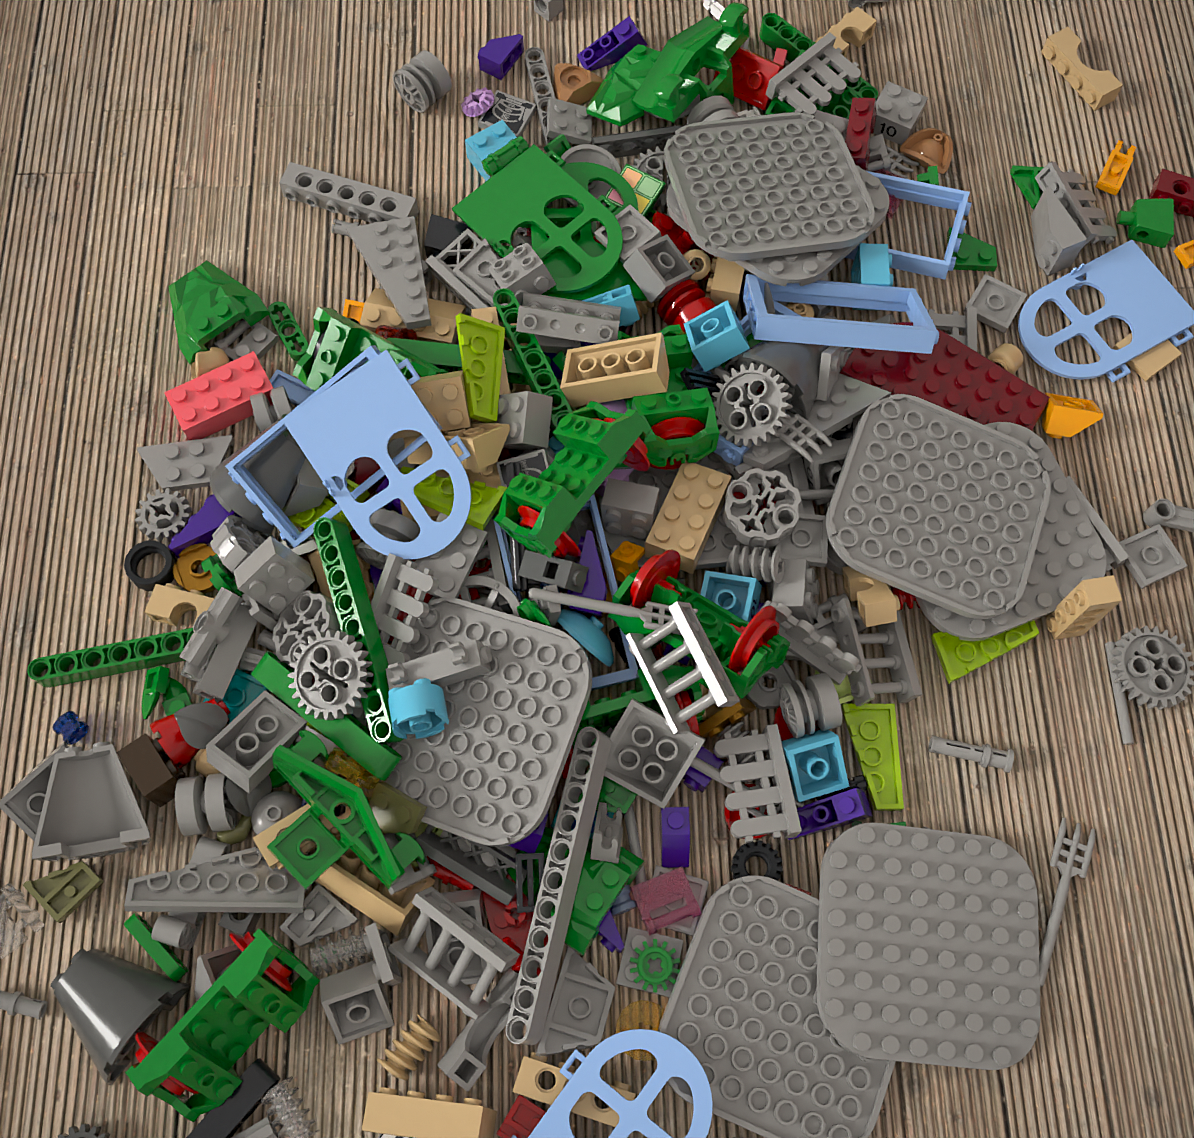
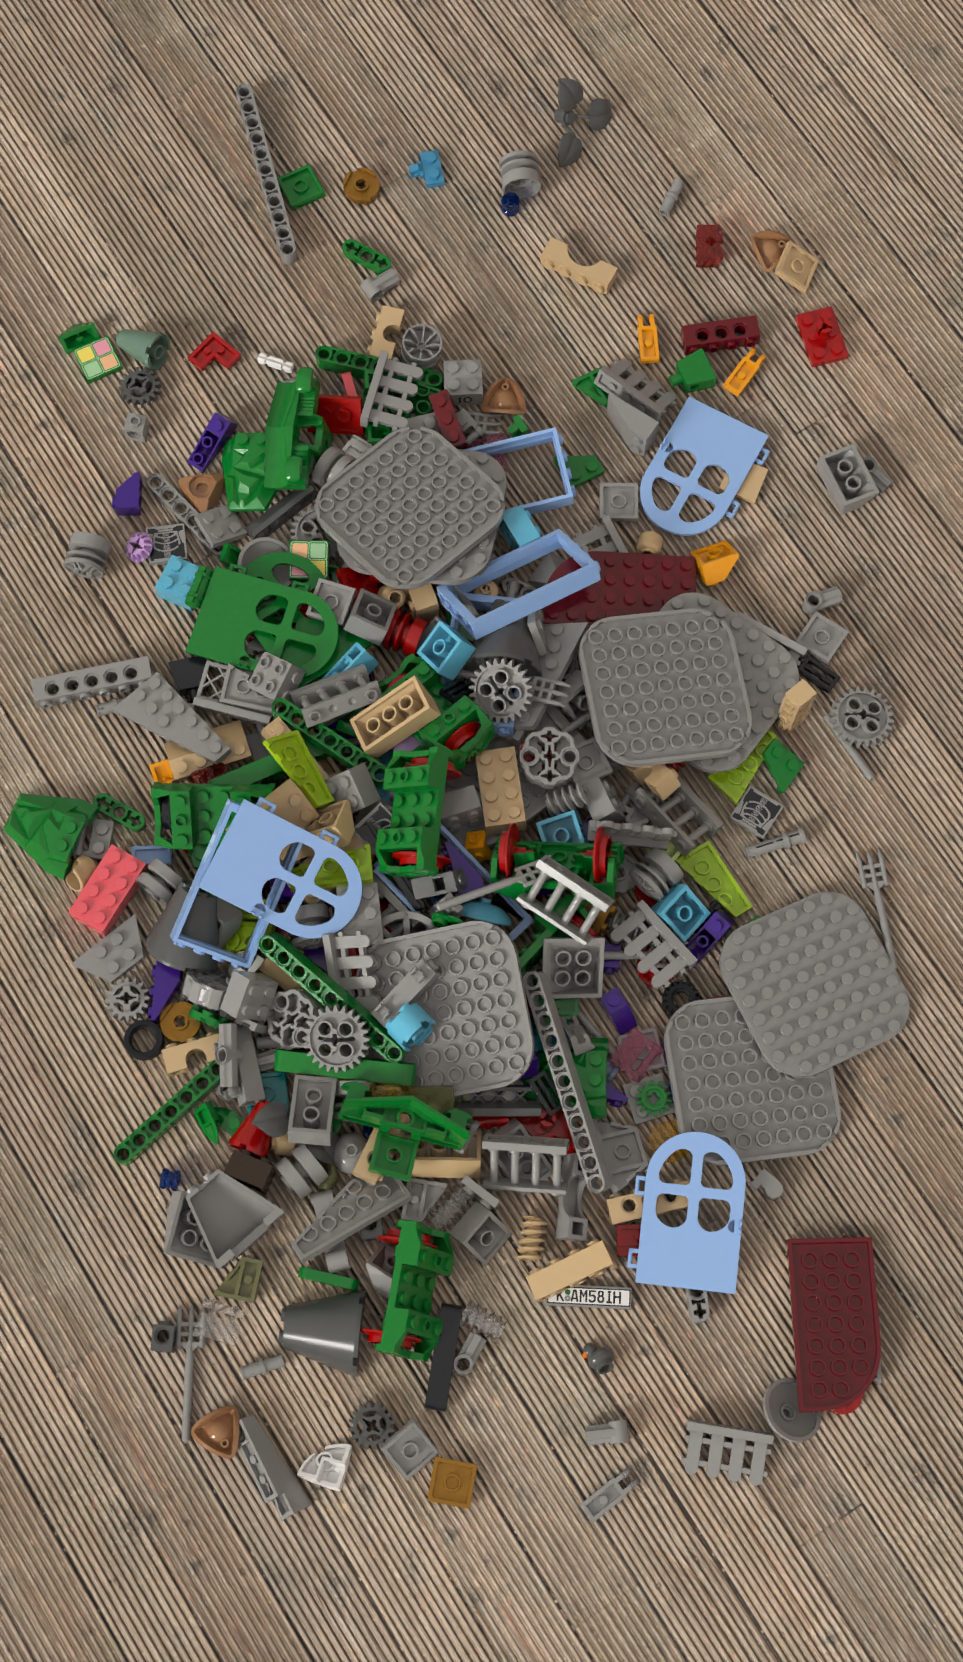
camera: 30 degrees left, 5 degrees up
(876, 57) = (422, 346): none -> light grey wheel
(967, 705) = (756, 812): none -> tile
(1028, 667) = (782, 764): none -> green wing
(1126, 606) = (814, 680): none -> black tile

